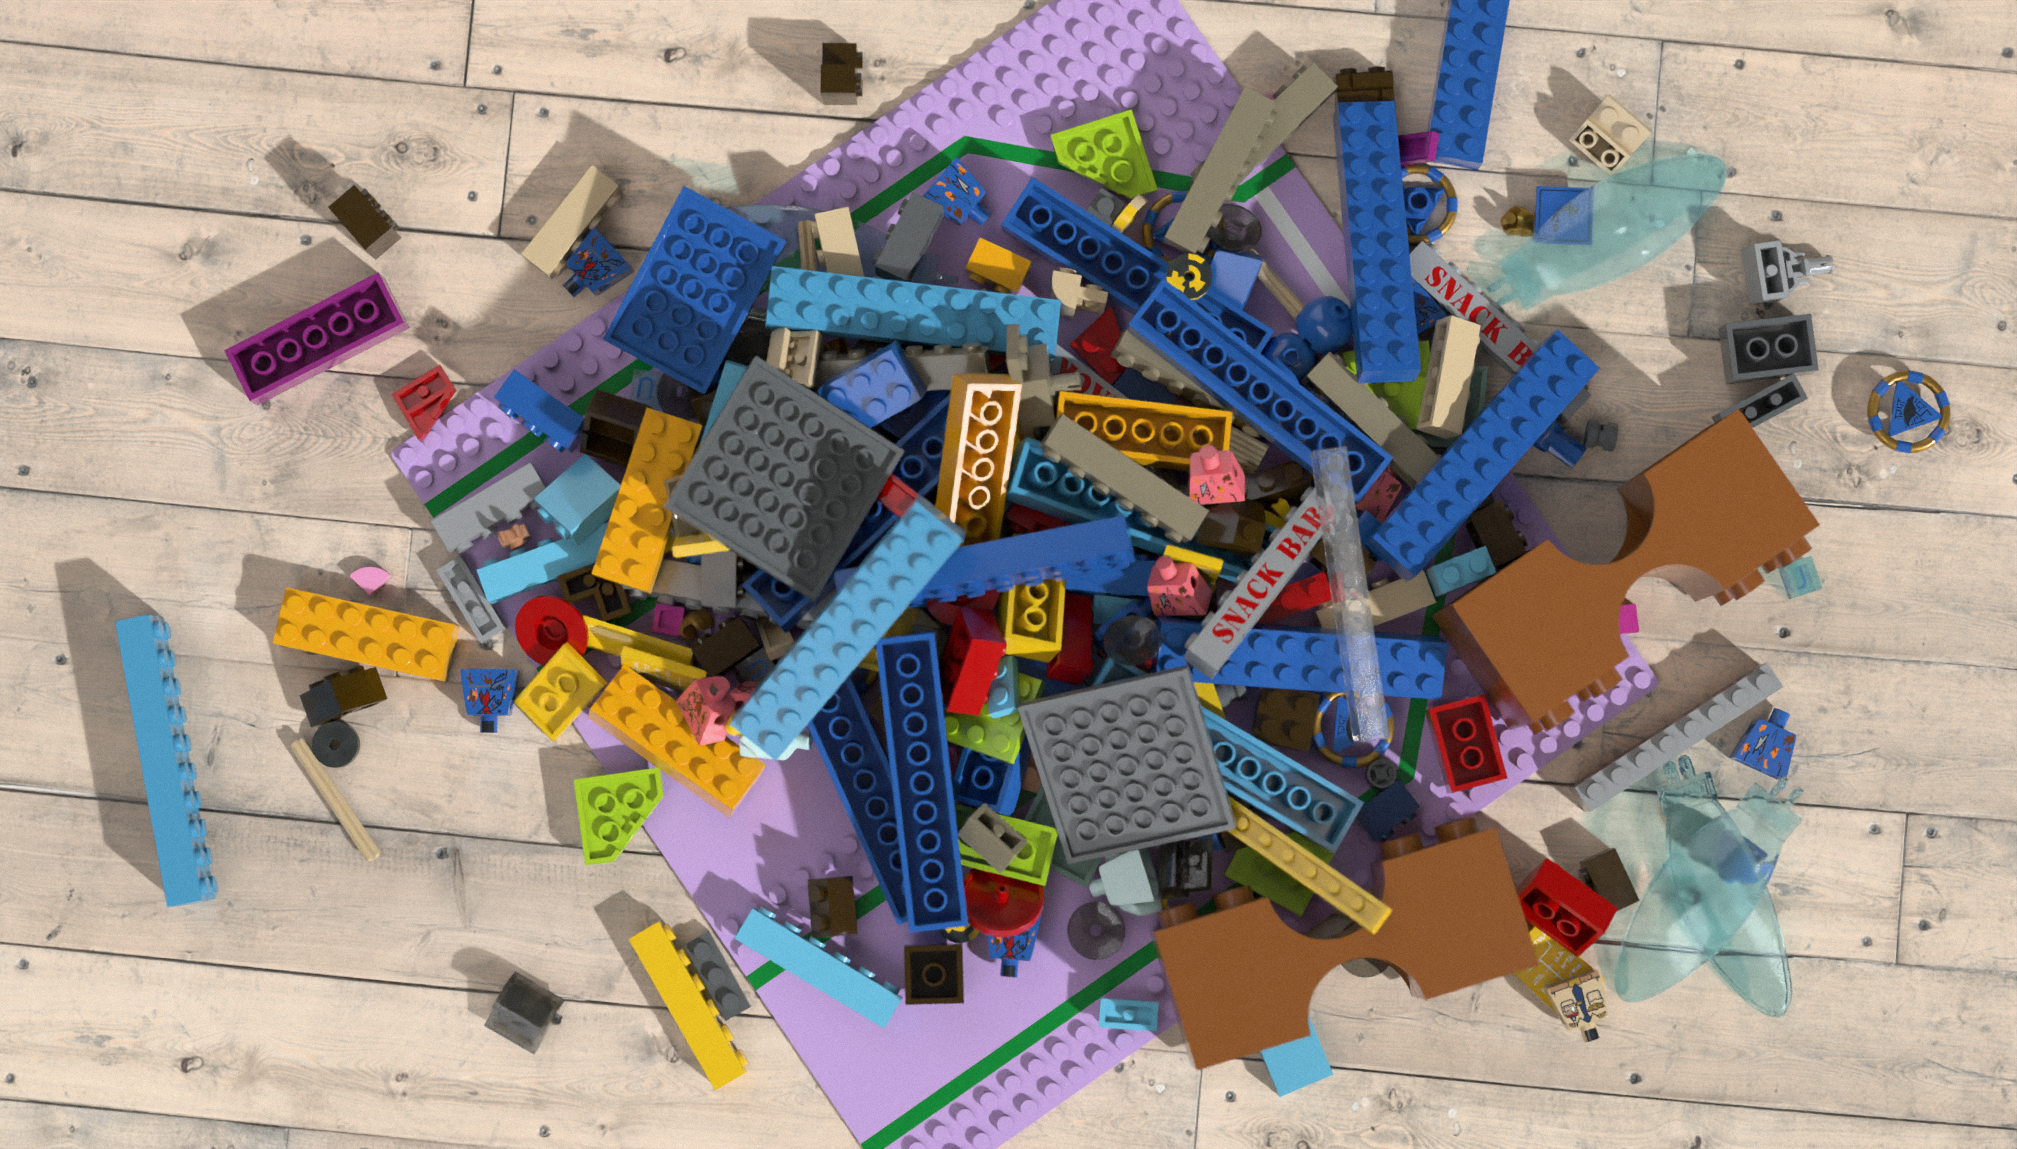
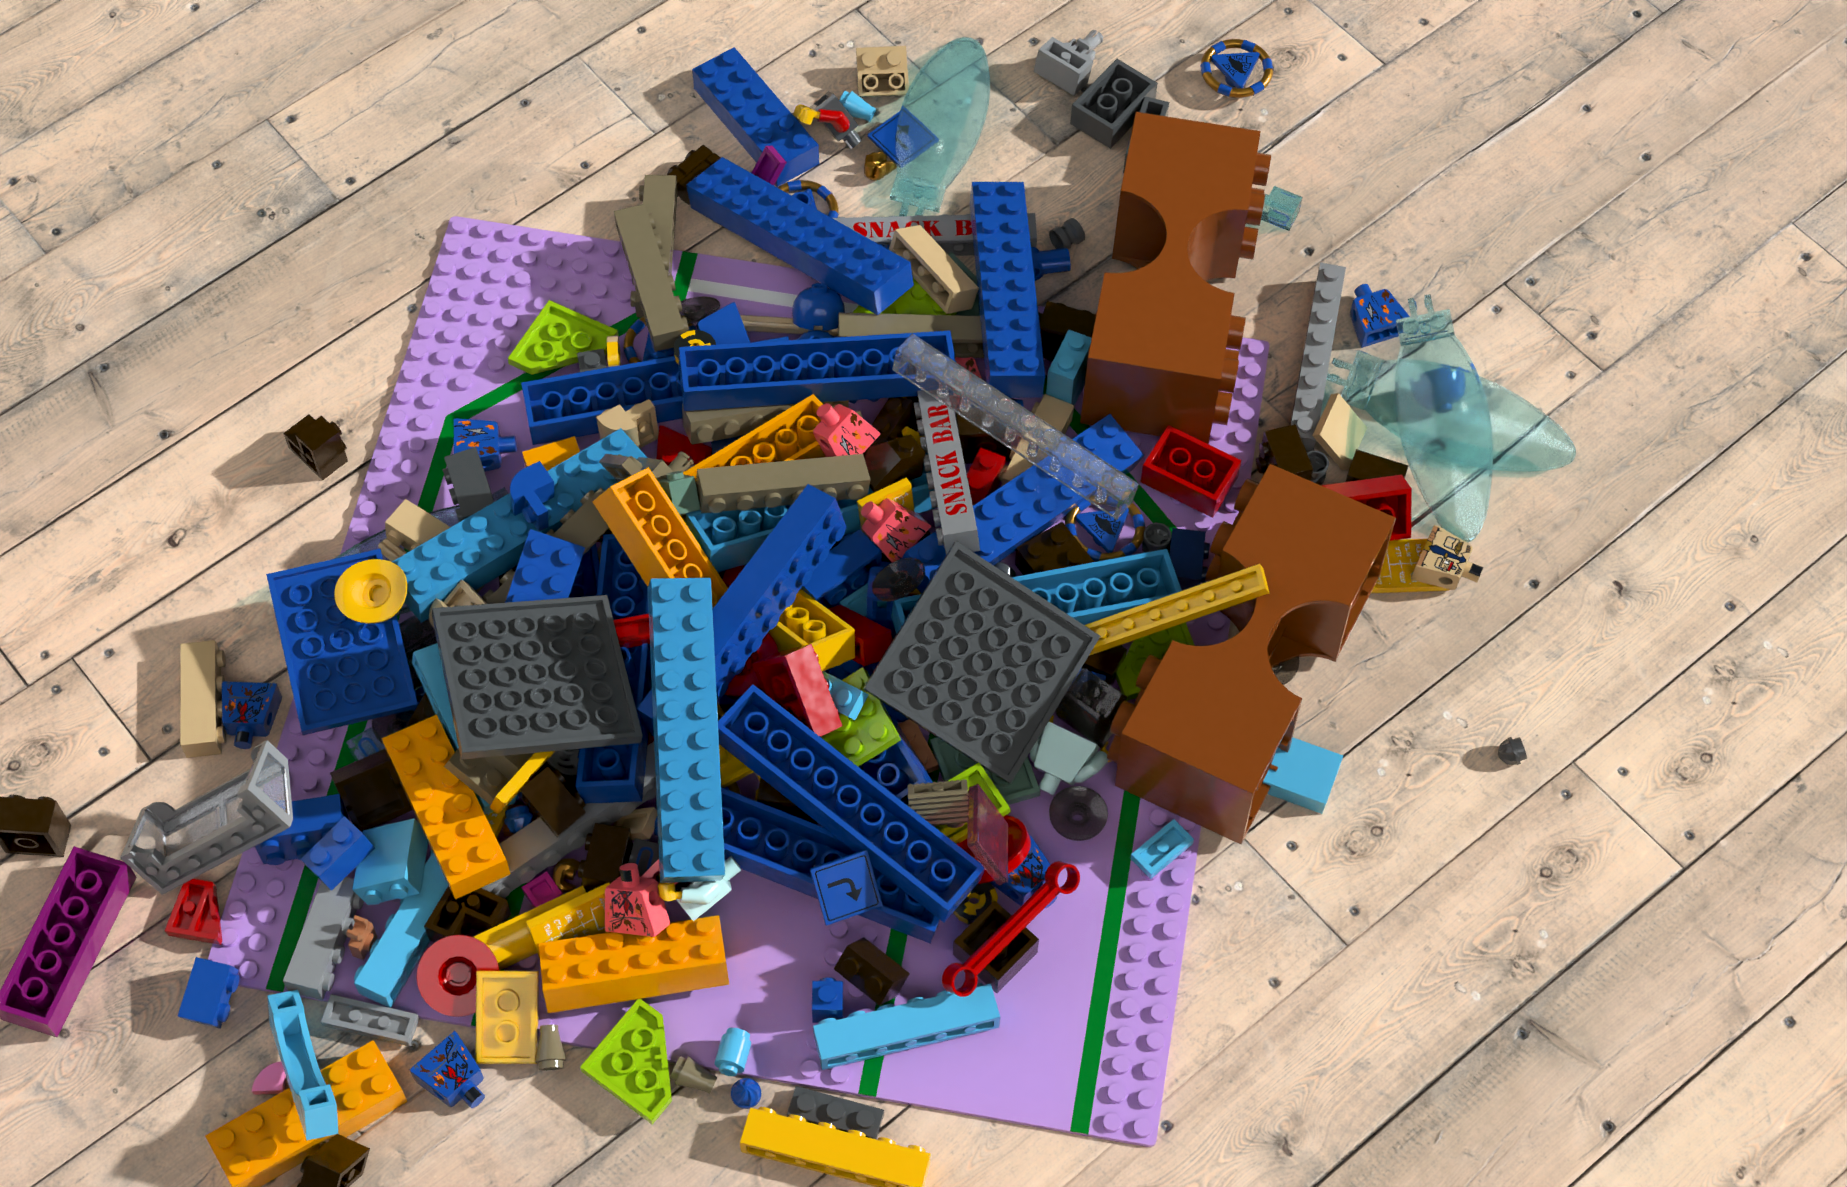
camera: 45 degrees left, 25 degrees down
(379, 475) = (209, 993): none -> blue brick
(385, 604) = (309, 1091): none -> medium azure arch
(481, 352) = (182, 843): none -> light grey windscreen
(545, 463) = (337, 853): none -> blue brick
(569, 742) = (550, 1049): none -> dark tan cone
(647, 855) = (692, 1075): none -> dark tan cone
(671, 902) = (746, 1093): none -> blue plate
(685, 869) = (733, 1052): none -> medium azure brick
(742, 278) = (371, 591): none -> yellow hat
(783, 896) = (827, 999): none -> blue brick
(861, 841) = (846, 887): none -> blue piece
(931, 301) = (529, 491): none -> blue brick
(966, 978) = (1010, 929): none -> red piece
(997, 900) = (987, 834): none -> clear pink tile
(1035, 416) = (681, 491): none -> sand green brick
(1520, 144) = (833, 116): none -> torso
(1545, 806) = (1285, 450): none -> dark brown brick
(1558, 145) = (857, 106): none -> medium azure cone
(1573, 826) = (1320, 466): none -> dark grey wheel
(1621, 819) = (1339, 431): none -> tan tile

